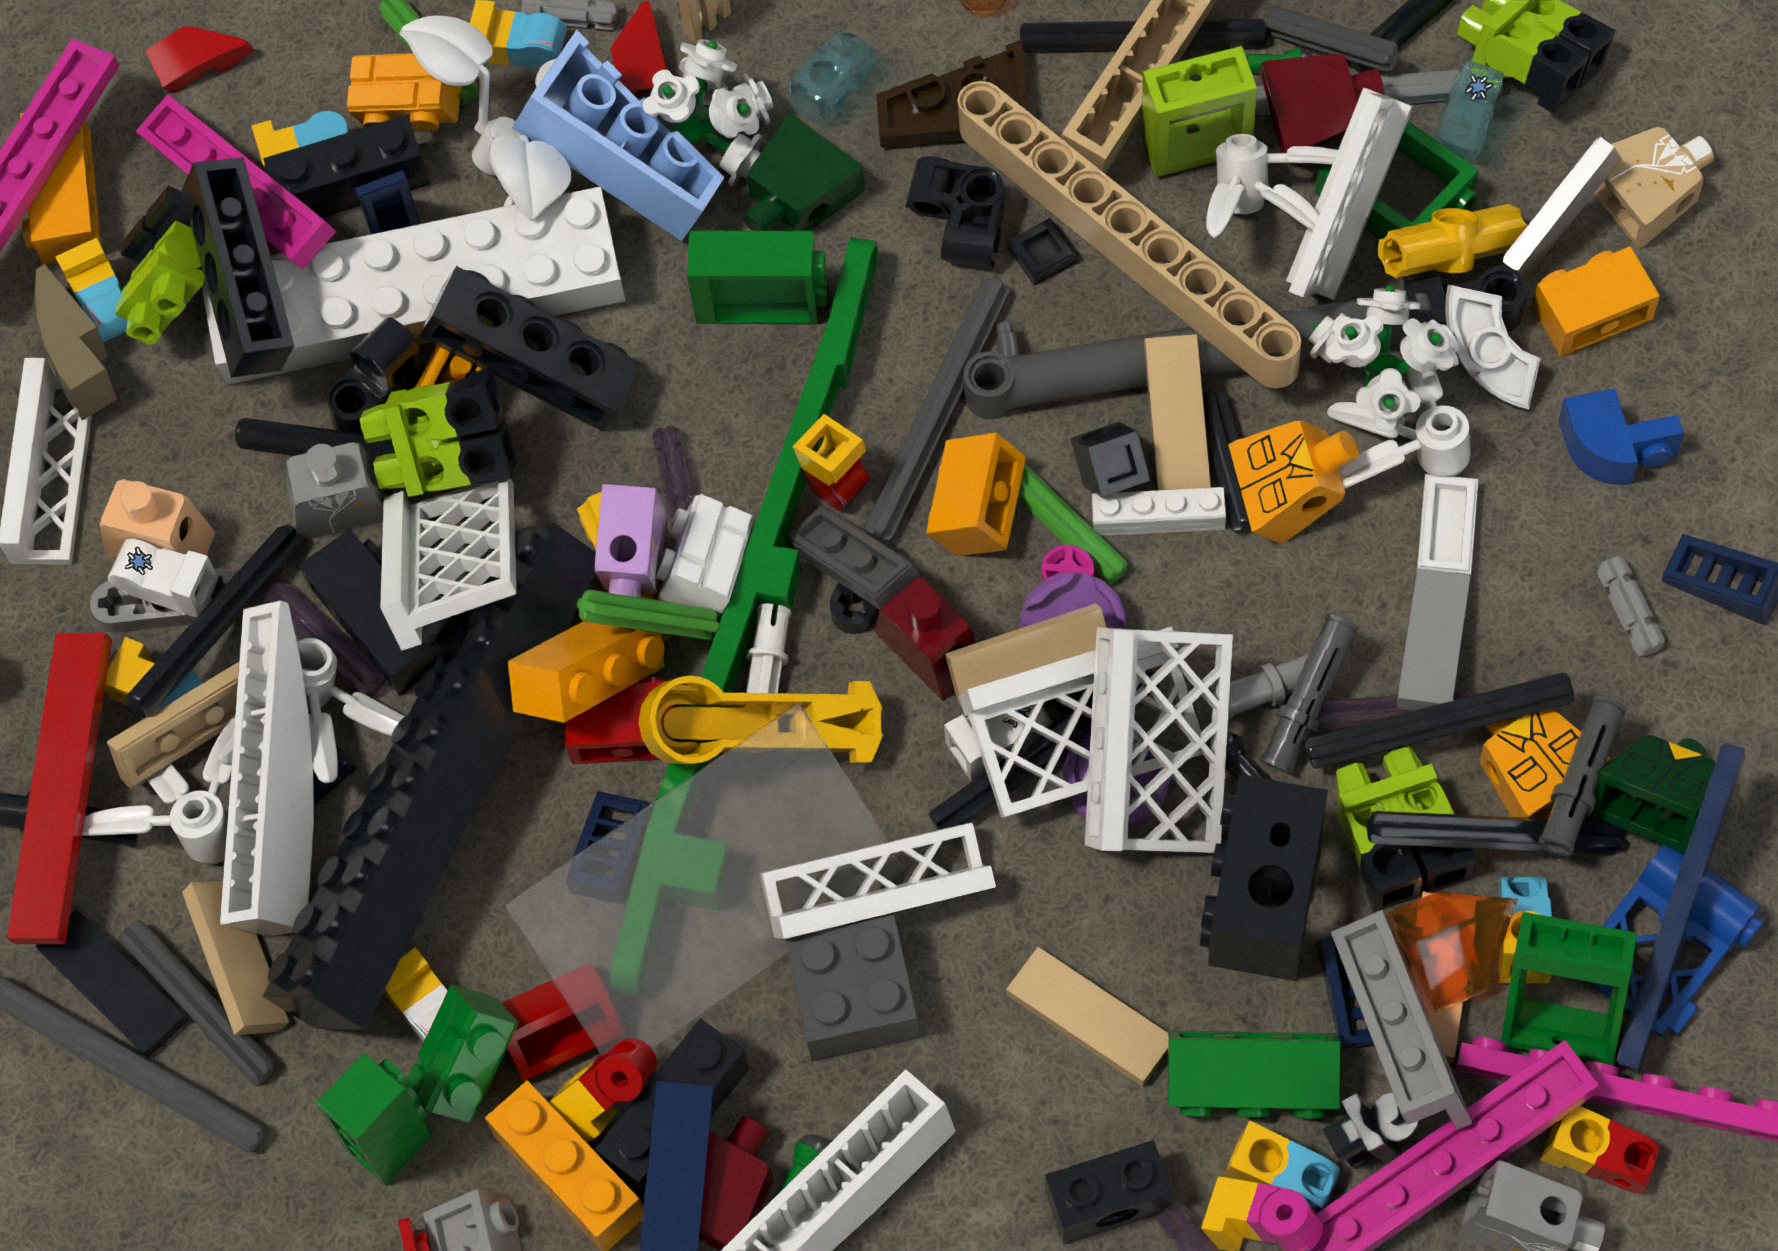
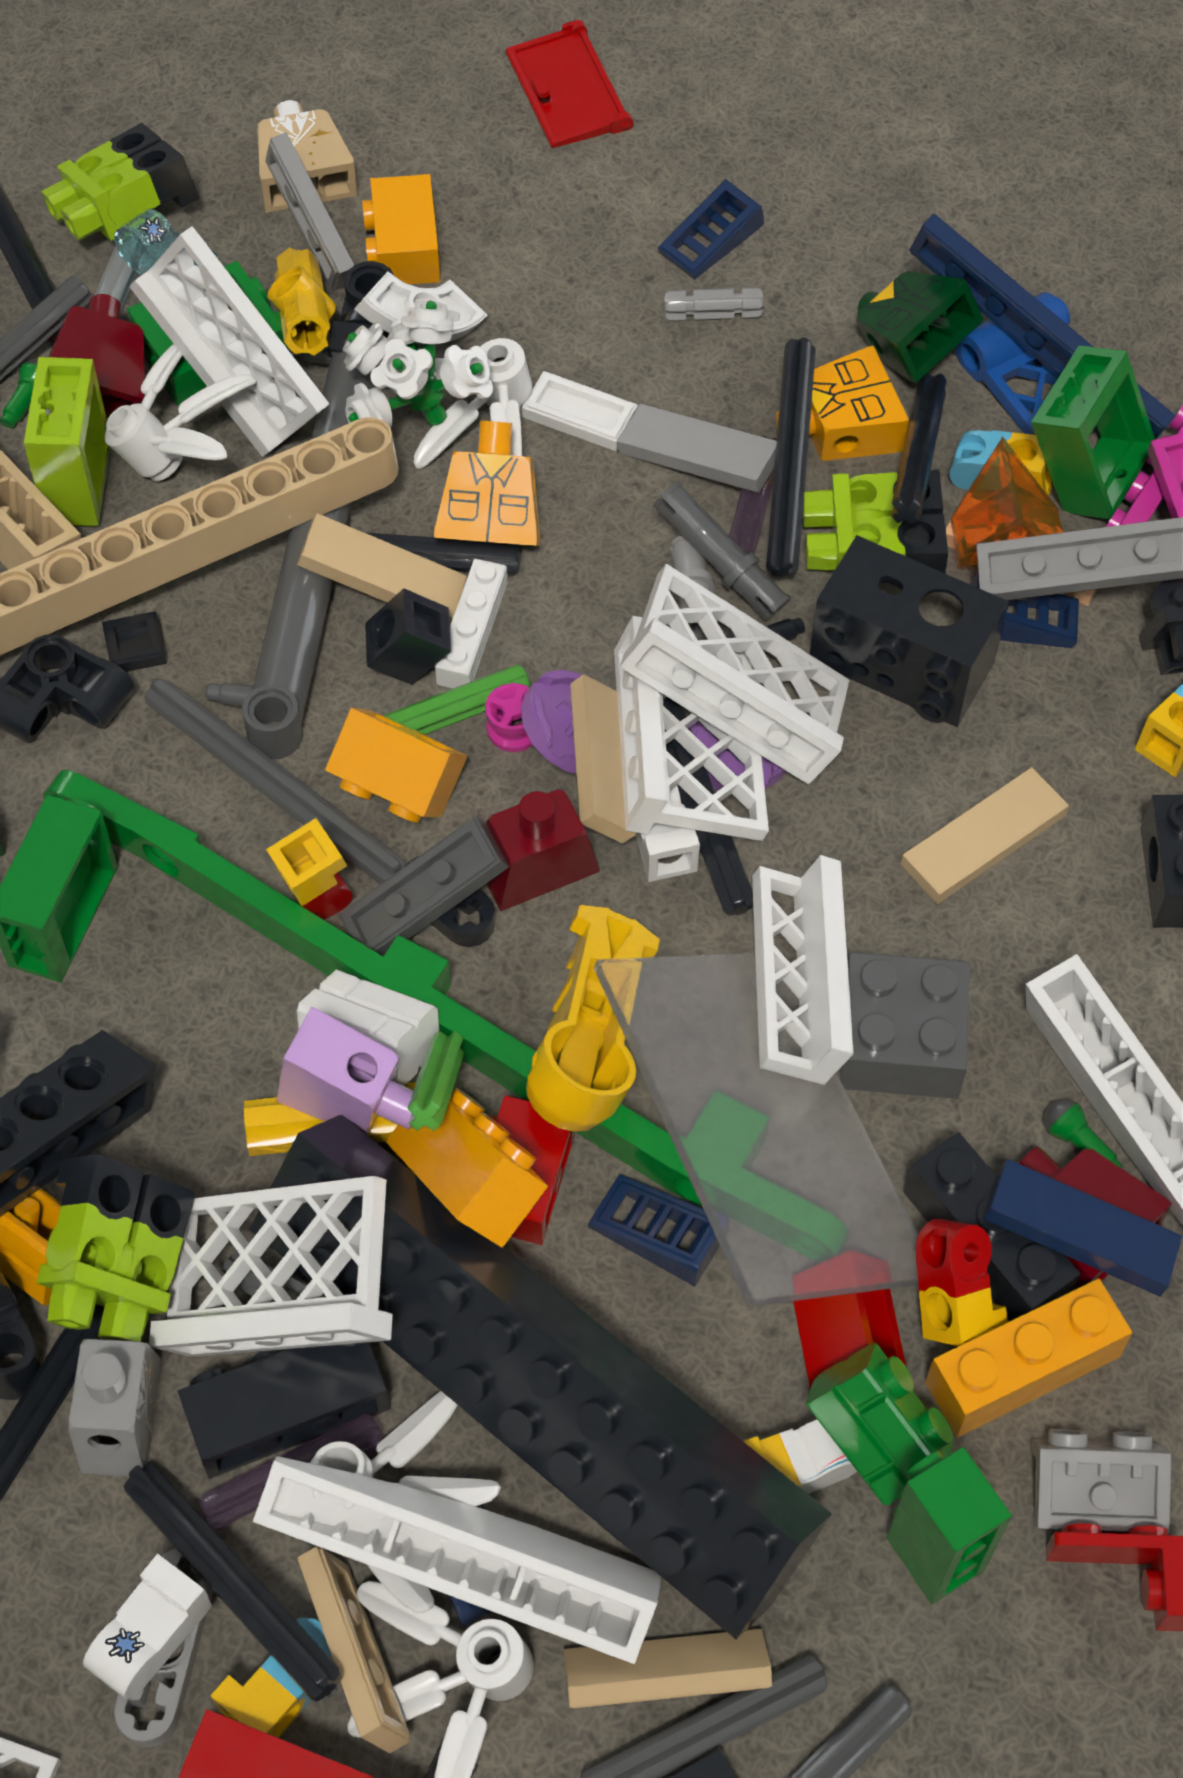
camera: 80 degrees left, 5 degrees down
(155, 518) = (59, 1632): light nougat torso -> none
(673, 469) = (235, 1046): clear purple axle -> none
(768, 650) = (497, 1009): white axle -> none
(1253, 1072) = (1090, 707): green brick -> none
(1575, 794) = (905, 372): dark grey pin -> none
(1607, 446) = (545, 267): blue brick -> none

